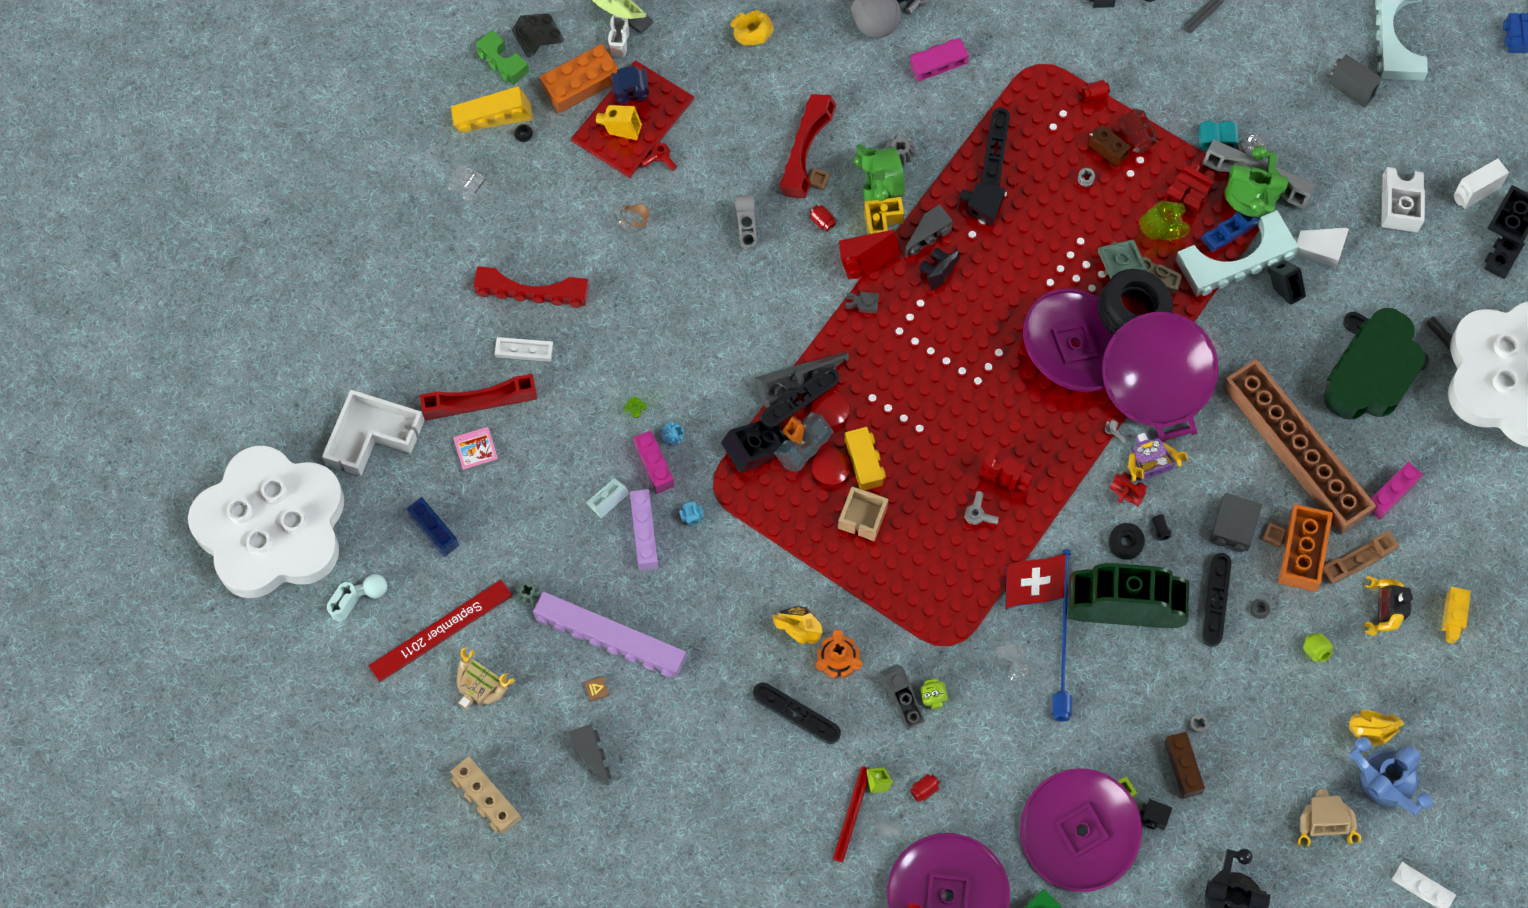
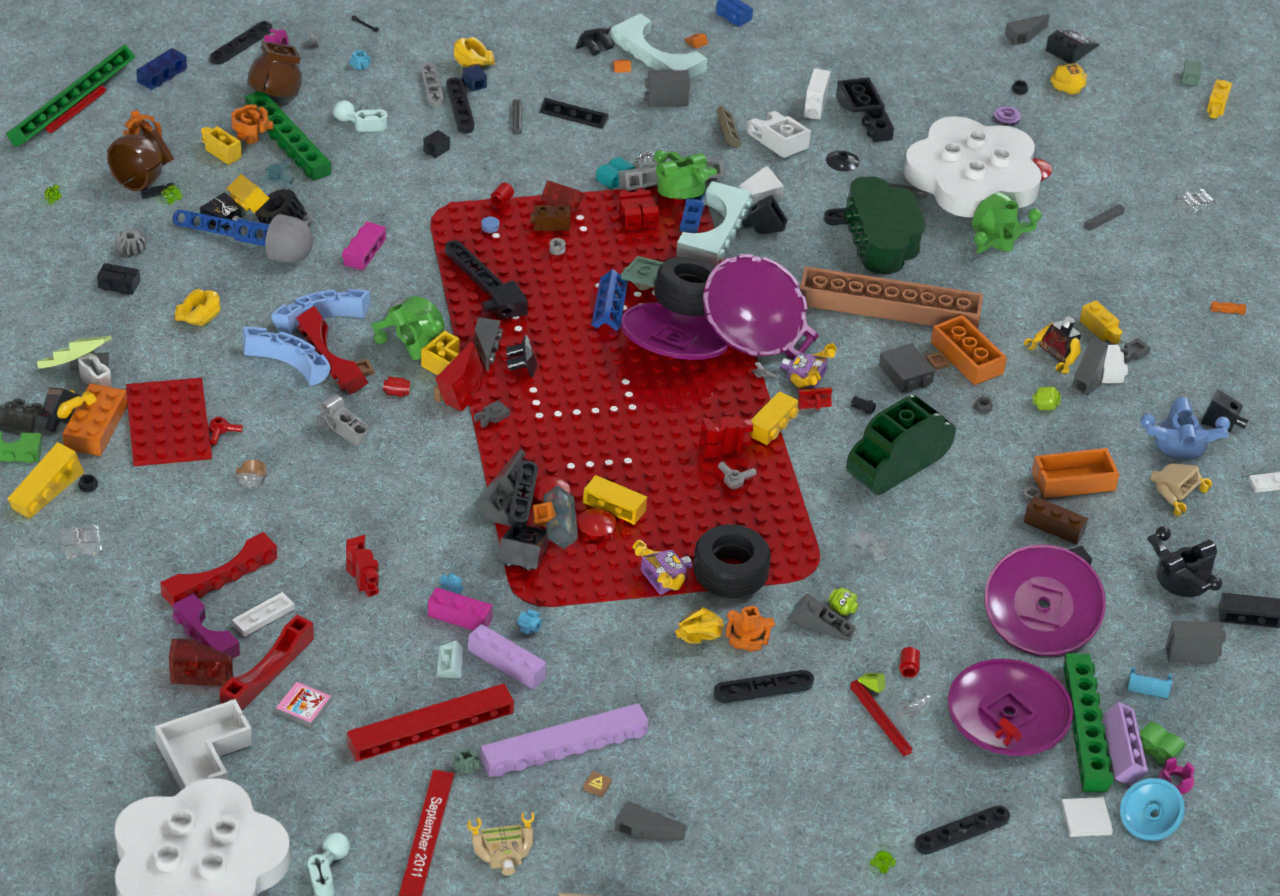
camera: 50 degrees left, 25 degrees down
(426, 352) = (198, 664): none -> clear red slope
(432, 527) = (335, 773): clear blue brick -> none
(474, 309) = (191, 614): none -> magenta arch
(537, 539) = (430, 722): none -> red brick
(565, 47) = (61, 404): none -> torso
(621, 121) = (168, 417): yellow torso -> none
(622, 369) = (361, 564): none -> red hips
(630, 84) = (147, 391): dark blue brick -> none
(635, 401) = (399, 590): clear neon green plate -> none
(779, 115) = (286, 348): none -> light blue brick
(830, 551) = (663, 568): none -> torso
(845, 94) = (328, 303): none -> light blue brick
(863, 513) = (659, 527): tan piece -> none
(882, 564) = (731, 579): none -> black tyre
(1040, 583) = (828, 489): flag -> none
(1057, 113) = (490, 224): none -> medium blue tile
(1062, 262) = (607, 296): none -> blue fence
(1068, 483) = (774, 417): none -> yellow brick
(1126, 530) = (850, 418): black tyre -> none
(1155, 223) = (645, 232): clear neon green piece -> none
(1215, 618) = (964, 429): black piece -> none
(1251, 737) = (1075, 473): none -> orange piece
(1256, 44) = (574, 113): none -> black slope
(1353, 21) = (622, 65): none -> orange slope
(1361, 558) = (1008, 329): medium nougat slope -> none
(1369, 159) = (728, 127): none -> dark tan plate
(1375, 726) = (1132, 414): yellow helmet -> none
(1379, 653) = (1091, 367): none -> dark grey slope
(1395, 489) = (979, 280): dark pink brick -> none
(1411, 660) = (1114, 366): none -> white brick
(1431, 274) = (842, 160): none -> black dish
(1448, 782) = (1224, 406): none -> black torso
(1451, 41) = (697, 40): none -> orange slope
(1455, 662) = (1135, 349): none -> dark grey plate
(1480, 443) = (998, 225): none -> bright green piece

